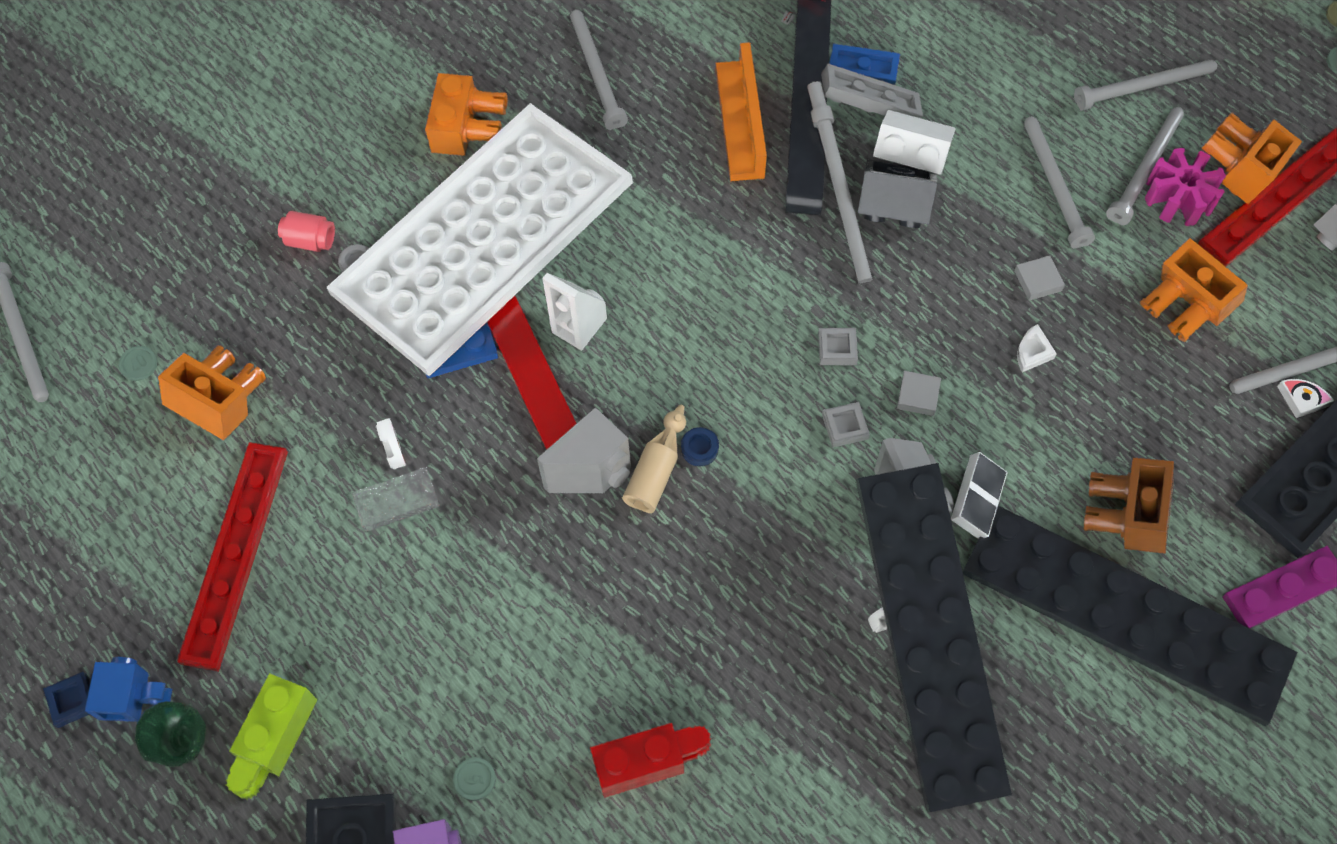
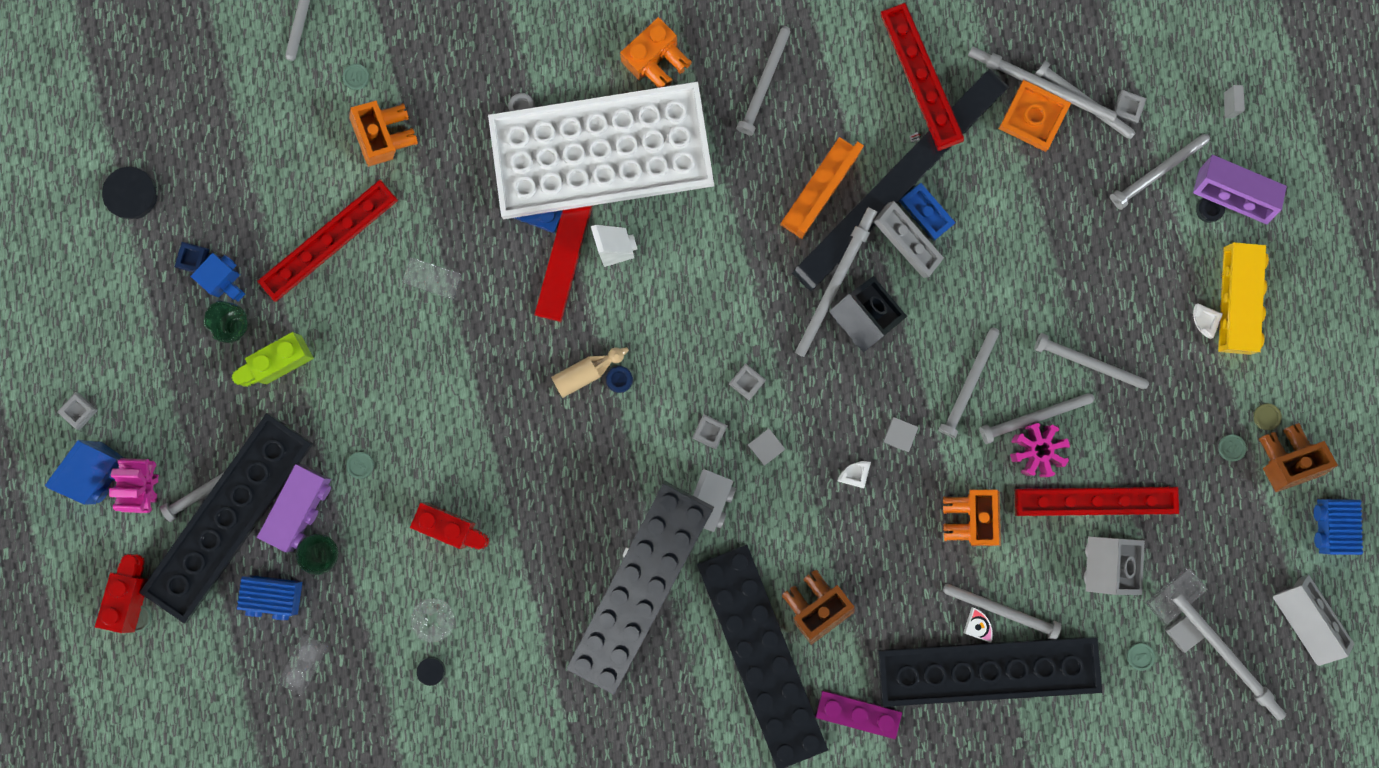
camera: 40 degrees right, 20 degrees up
(306, 231) = (506, 64): coral brick -> none
(391, 444) = (455, 238): white tile -> none
(586, 458) = (547, 341): light grey slope -> none
(914, 142) = (905, 291): white brick -> none
(979, 495) = (741, 533): black tile -> none
(1255, 157) = (1095, 474): orange brick -> none

